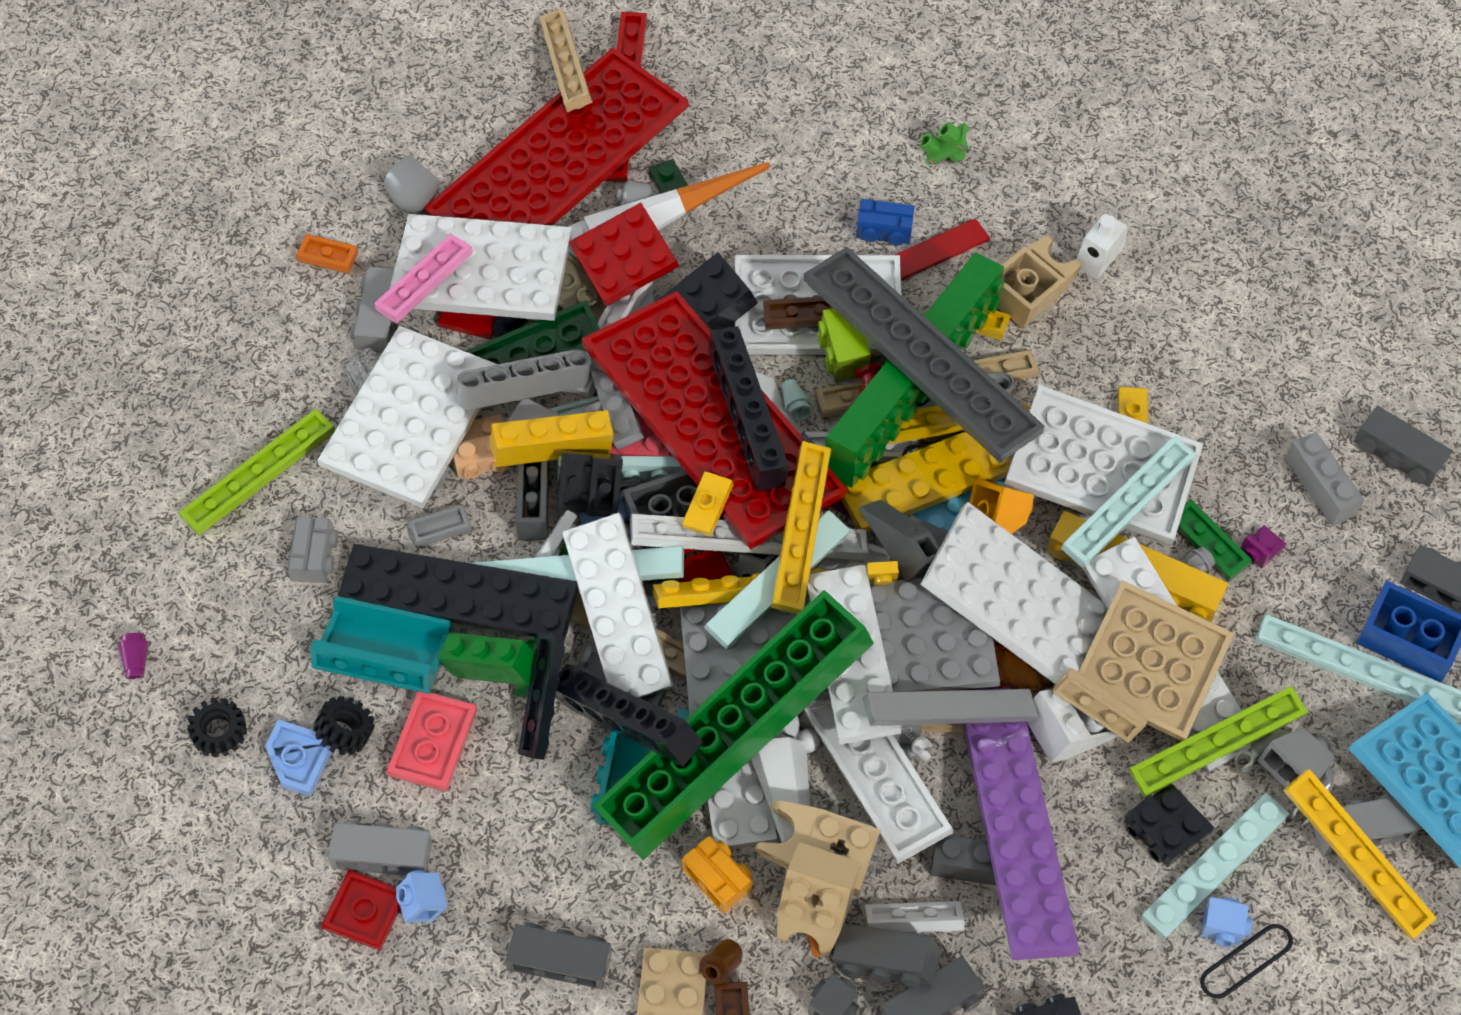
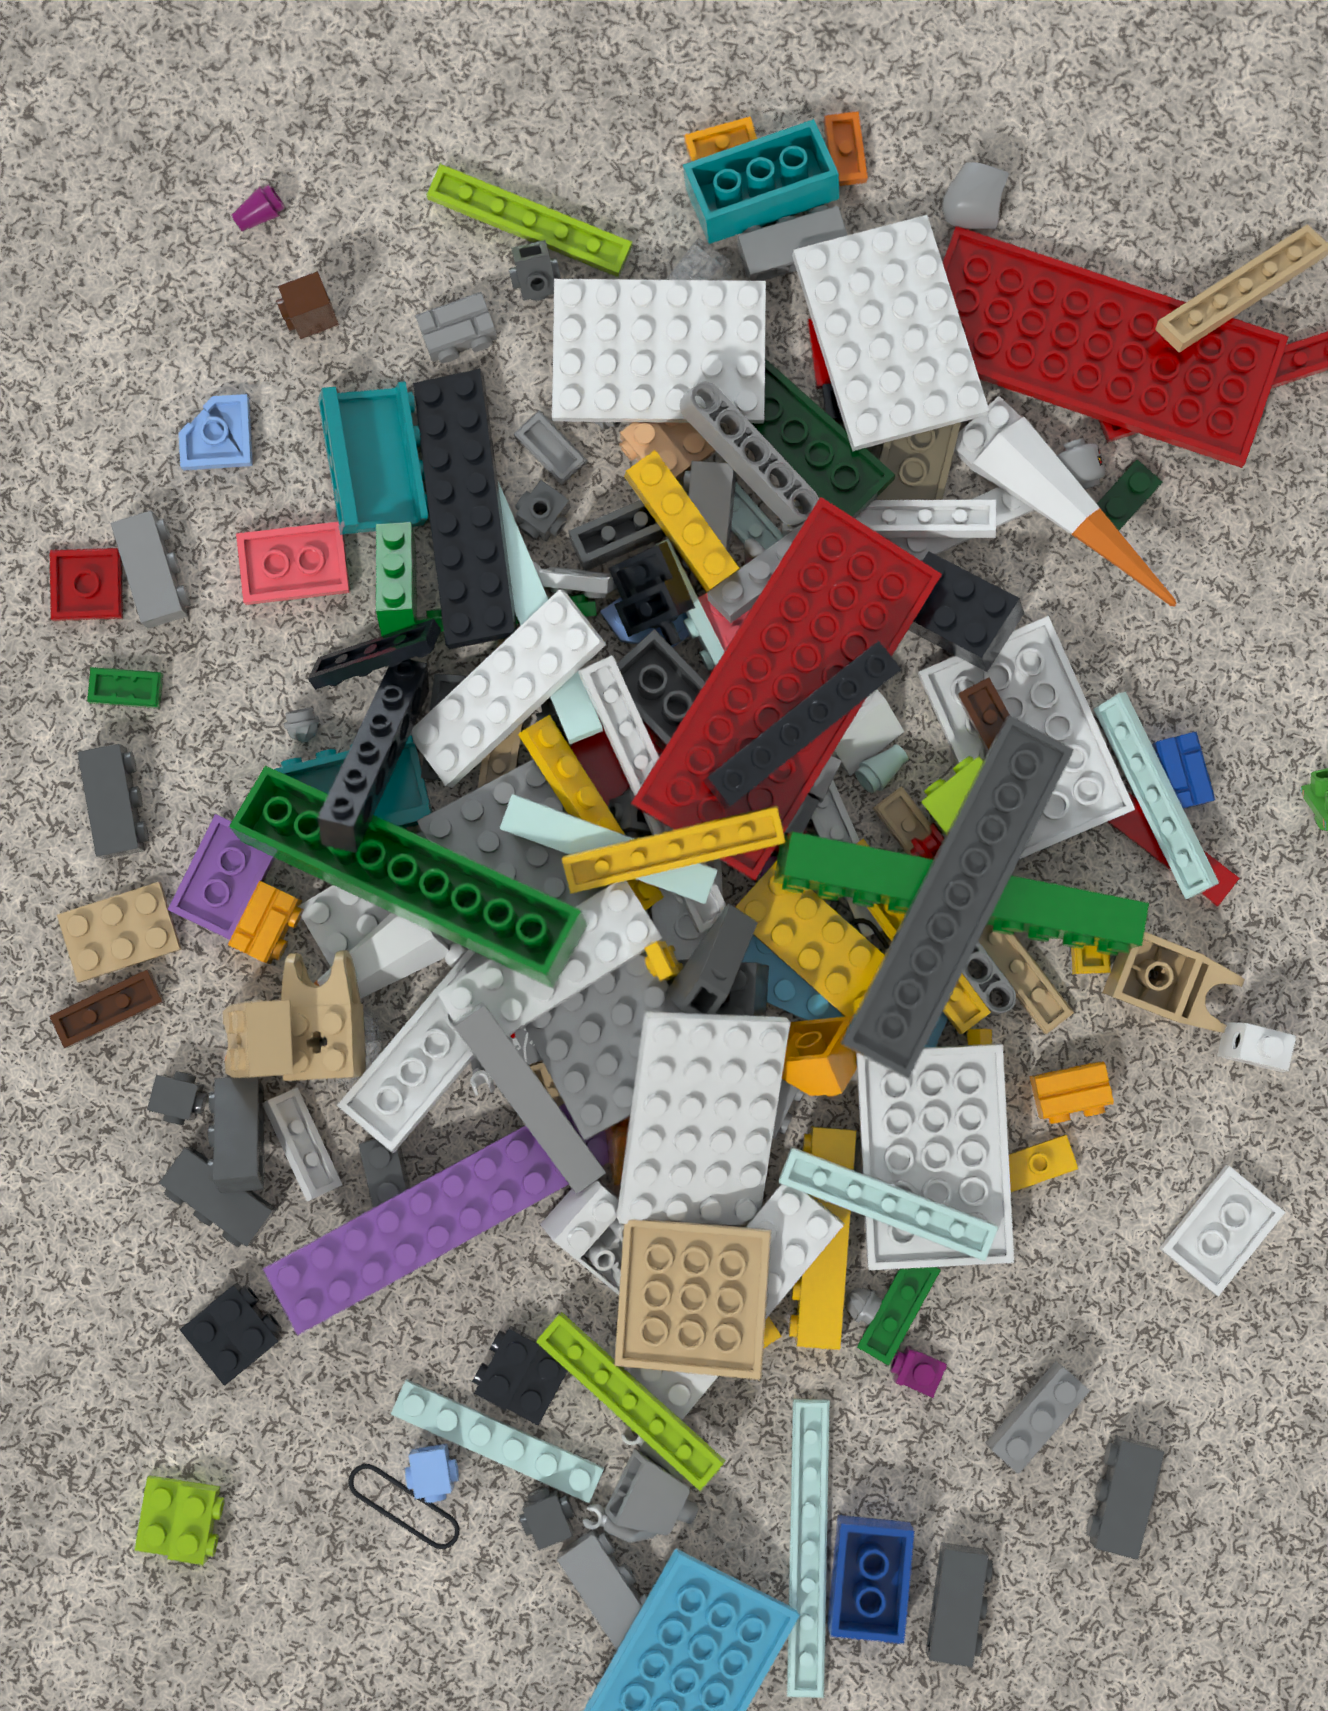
camera: 65 degrees right, 25 degrees up
(214, 711) = (214, 317): black tyre -> none
(236, 640) = (306, 306): none -> reddish brown piece
(276, 327) = (719, 138): none -> light orange plate
(300, 478) = (534, 271): none -> dark grey brick
(322, 306) = (761, 181): none -> teal brick
(337, 736) = (284, 465): black tyre -> none
(421, 896) = (115, 634): light blue brick -> none
(423, 278) = (830, 278): bright pink plate -> none
(467, 910) = (125, 687): none -> green plate
(487, 541) = (542, 499): none -> dark grey brick
(566, 784) = (301, 724): none -> light grey plate
(623, 254) = (977, 488): red plate -> none
(665, 895) = (220, 880): none -> medium lavender plate
(707, 504) = (658, 733): yellow plate -> none
(721, 961) = (170, 967): reddish brown brick -> none
(898, 238) = (1156, 795): none -> light aqua tile
(1088, 369) = (1071, 1091): none -> light orange brick
(1099, 705) = (611, 1257): tan tile -> none
(1225, 319) = (1222, 1230): none -> white plate
(1292, 847) = (547, 1517): none -> dark grey brick
(1359, 854) = (556, 1594): yellow plate -> none

